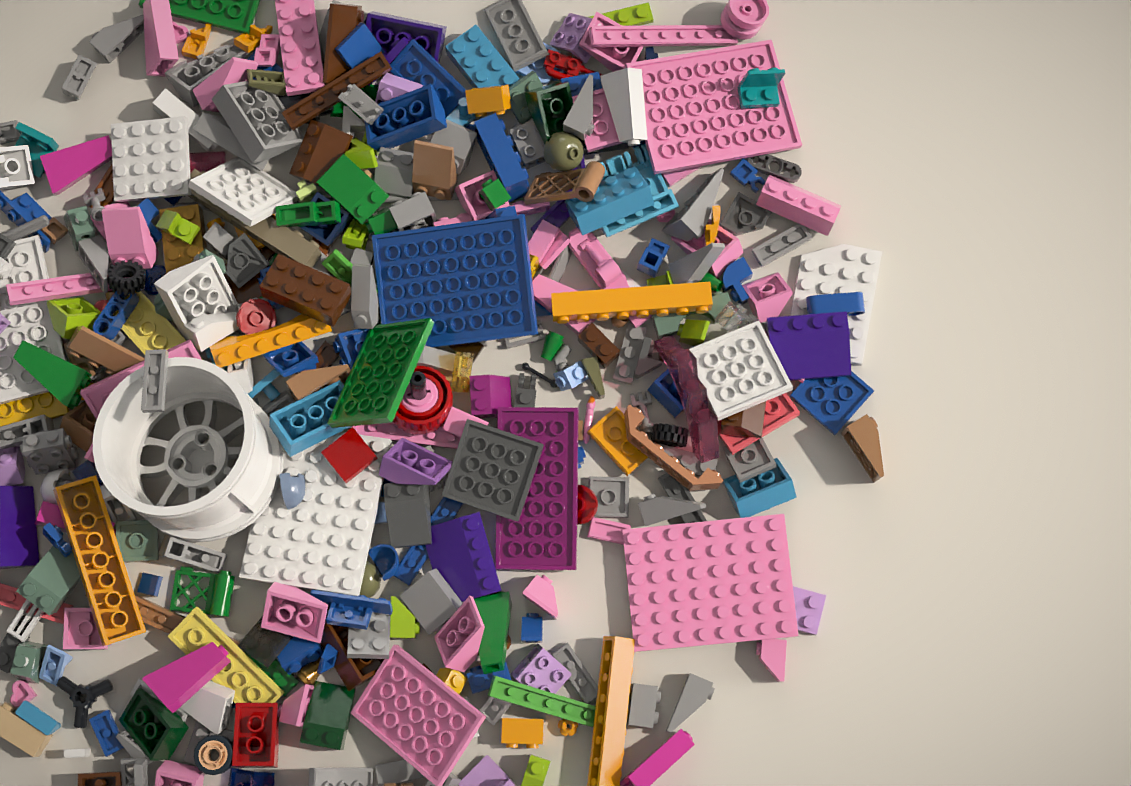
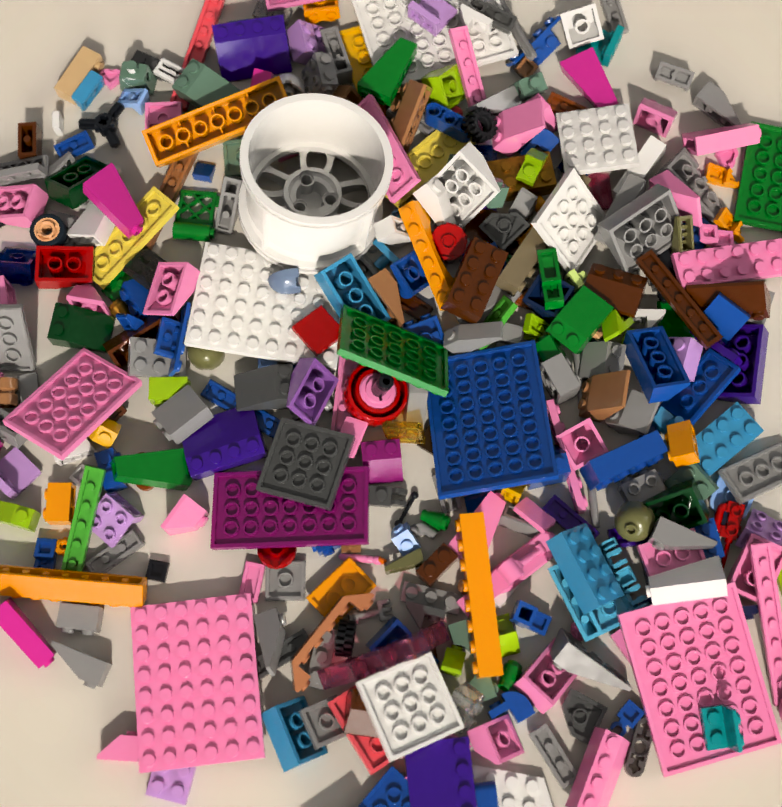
camera: 90 degrees right, 5 degrees down
(55, 536) = (241, 84): blue plate -> none
(94, 200) = (554, 95): light grey hinge -> none
(125, 99) = (654, 117): none -> bright pink slope
(154, 381) = (368, 138): light grey plate -> none
(361, 103) = (665, 319): light grey hinge -> none
(385, 559) = (222, 372): blue helmet -> none
(461, 637) = (143, 438): bright pink slope -> none
(494, 194) = (582, 452): green brick -> none
(532, 628) = (153, 507): blue slope -> none
(542, 239) = (540, 504): bright pink tile -> none
(575, 746) = (45, 553): none -> blue slope
(584, 185) = (597, 540): medium nougat piece -> none
(595, 628) = (157, 571): none -> black tile
(695, 265) = (520, 658): light grey slope -> none
(711, 230) = (559, 677): light orange slope -> none

